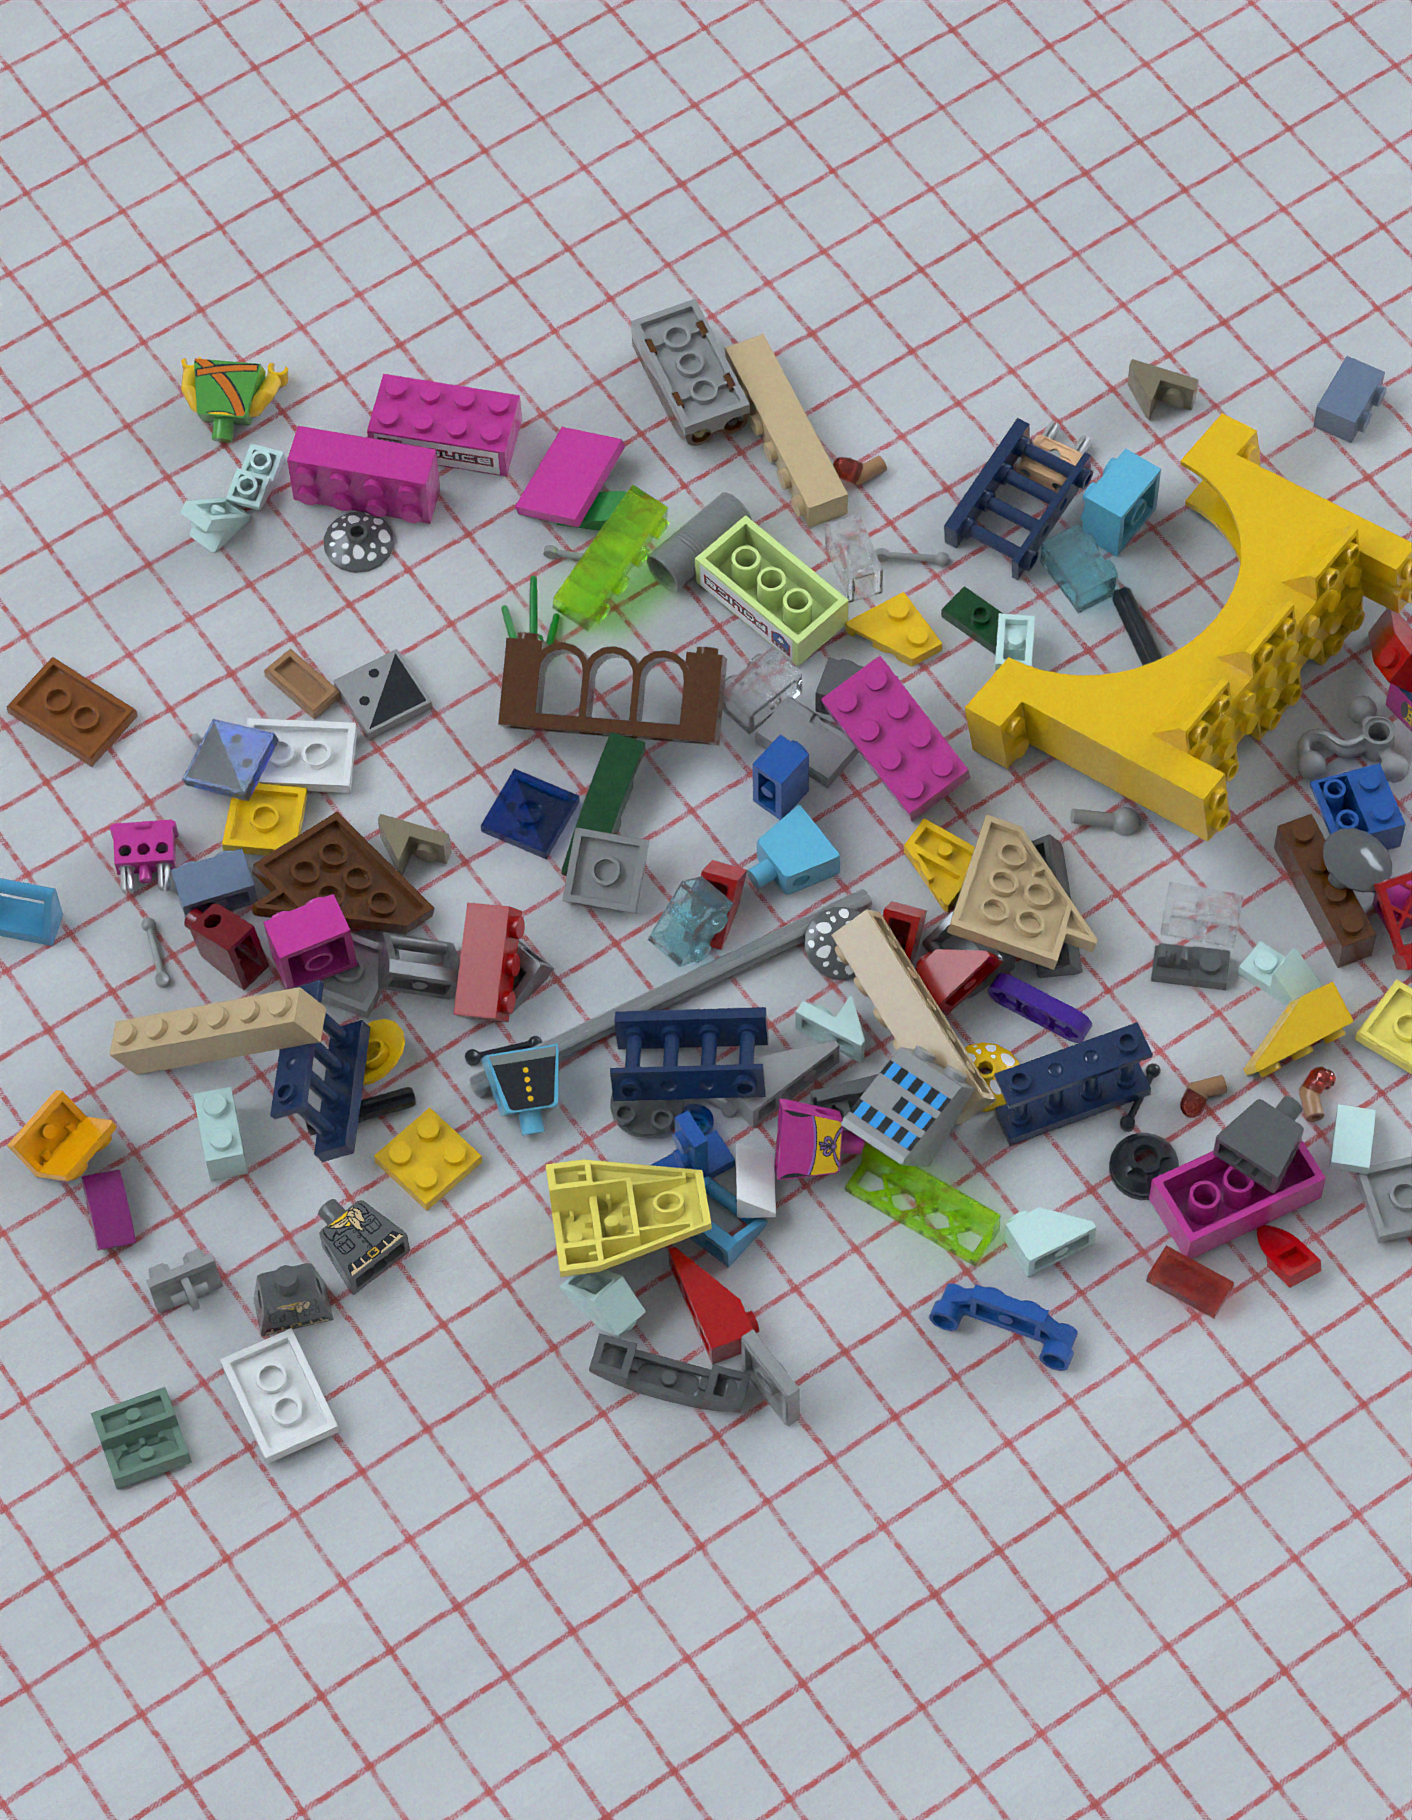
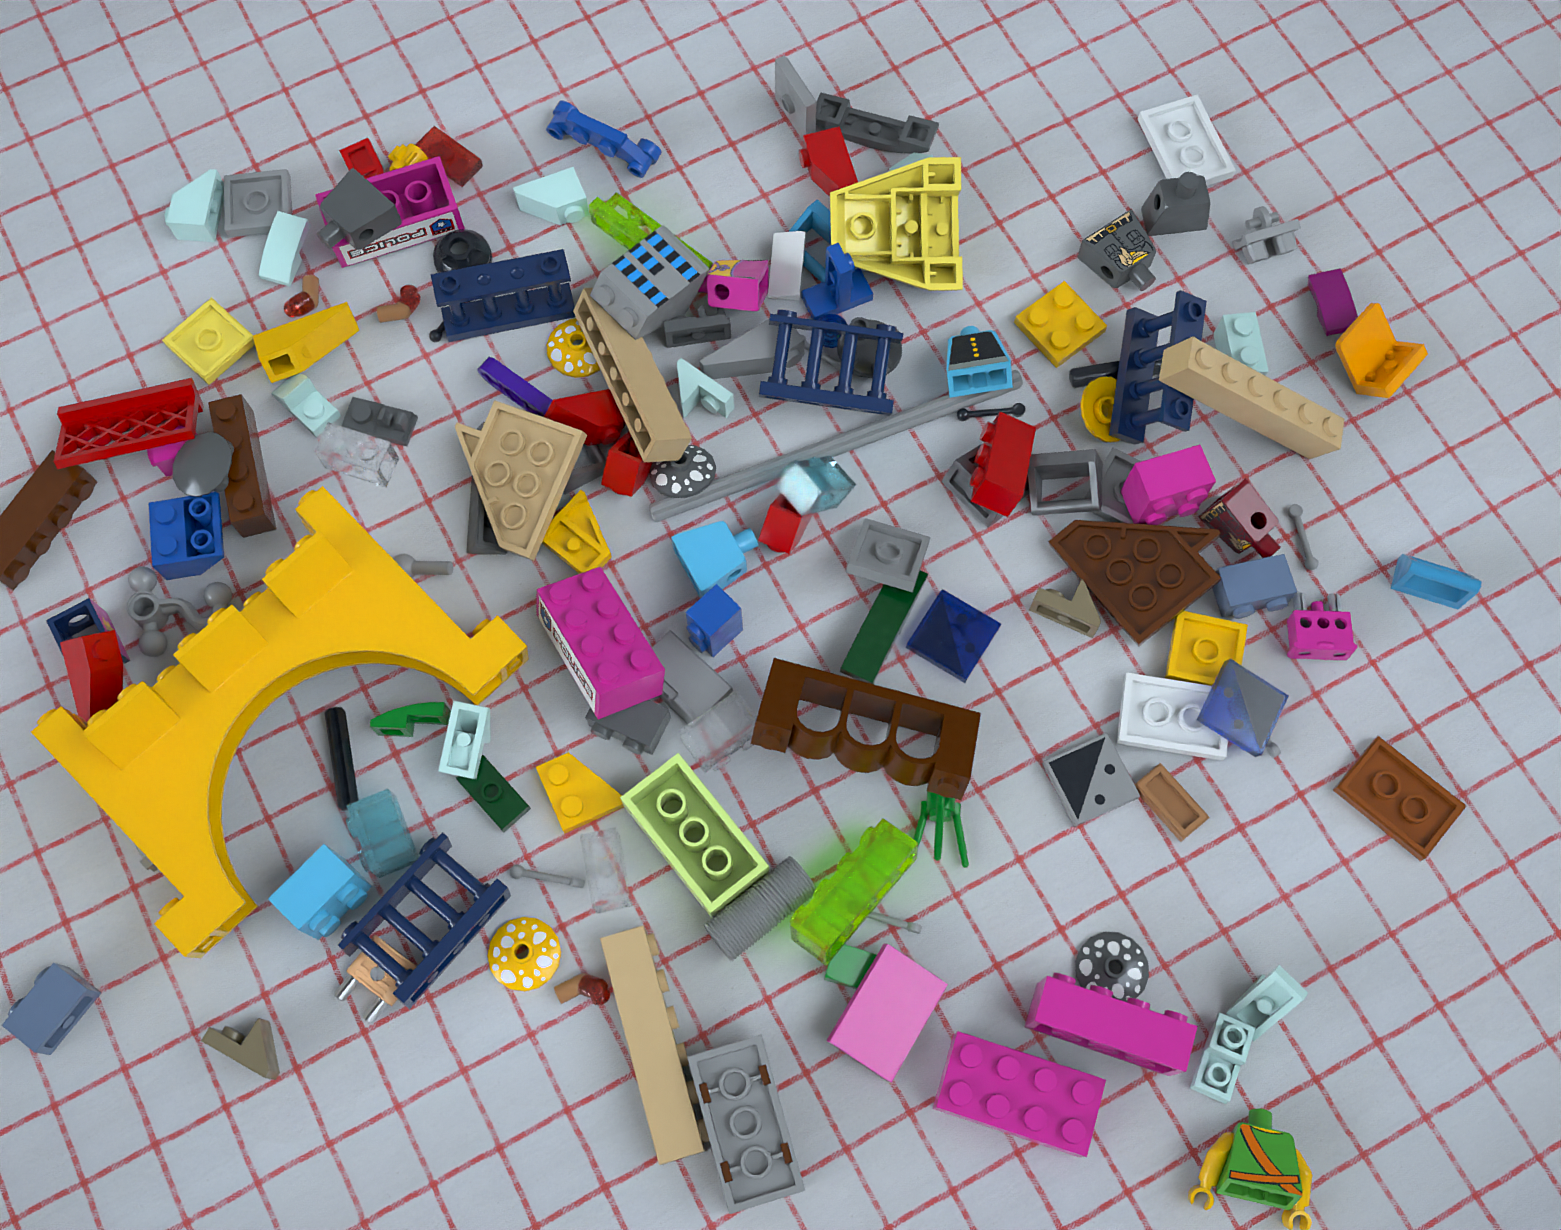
camera: 175 degrees left, 10 degrees up
(141, 1438) = (1294, 129): sand green slope -> none
(921, 507) = (539, 964): none -> yellow dish
(1088, 662) = (401, 721): none -> green slope
(1234, 1259) = (406, 156): none -> yellow gear

